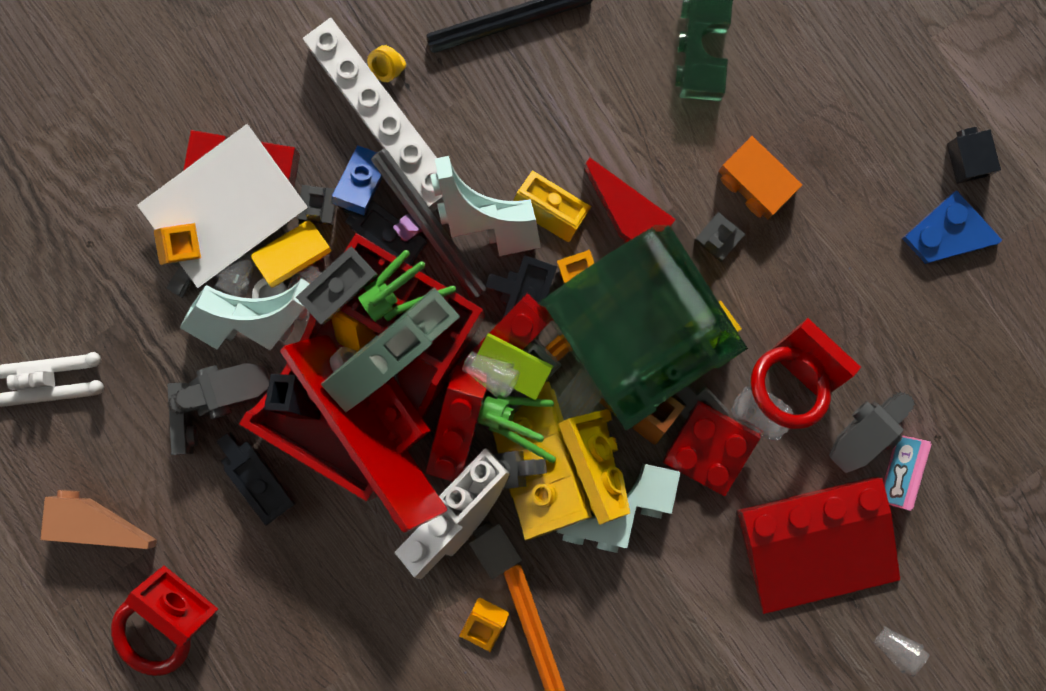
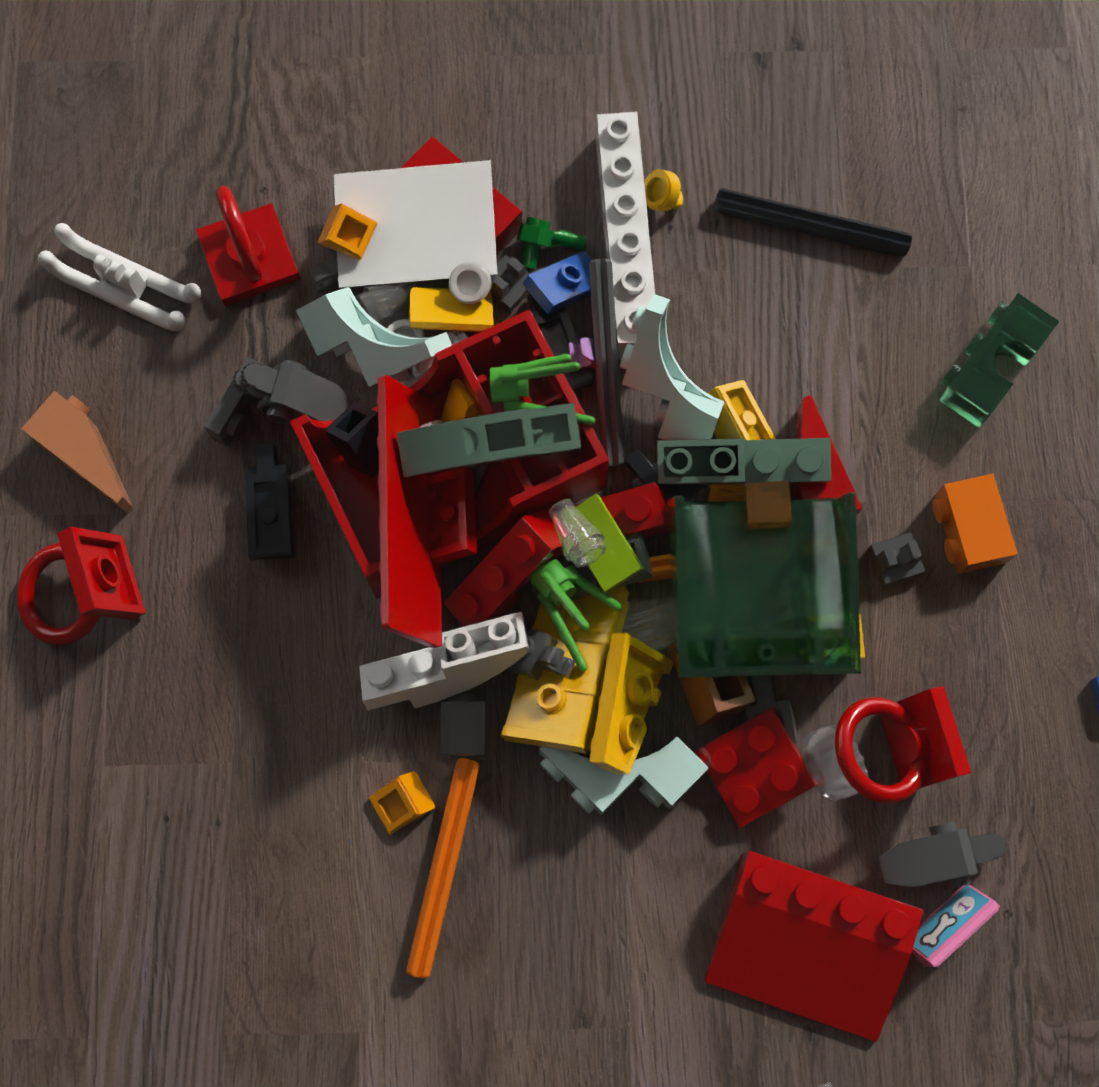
camera: 30 degrees right, 10 degrees down
(109, 300) = (246, 250): none -> red tile
(292, 227) = (469, 282): none -> white tile
(314, 155) = (537, 234): none -> green piece
(336, 286) = (477, 344): dark grey plate -> none
(572, 239) = (743, 461): none -> sand green slope
(609, 260) = (768, 504): none -> clear orange tile

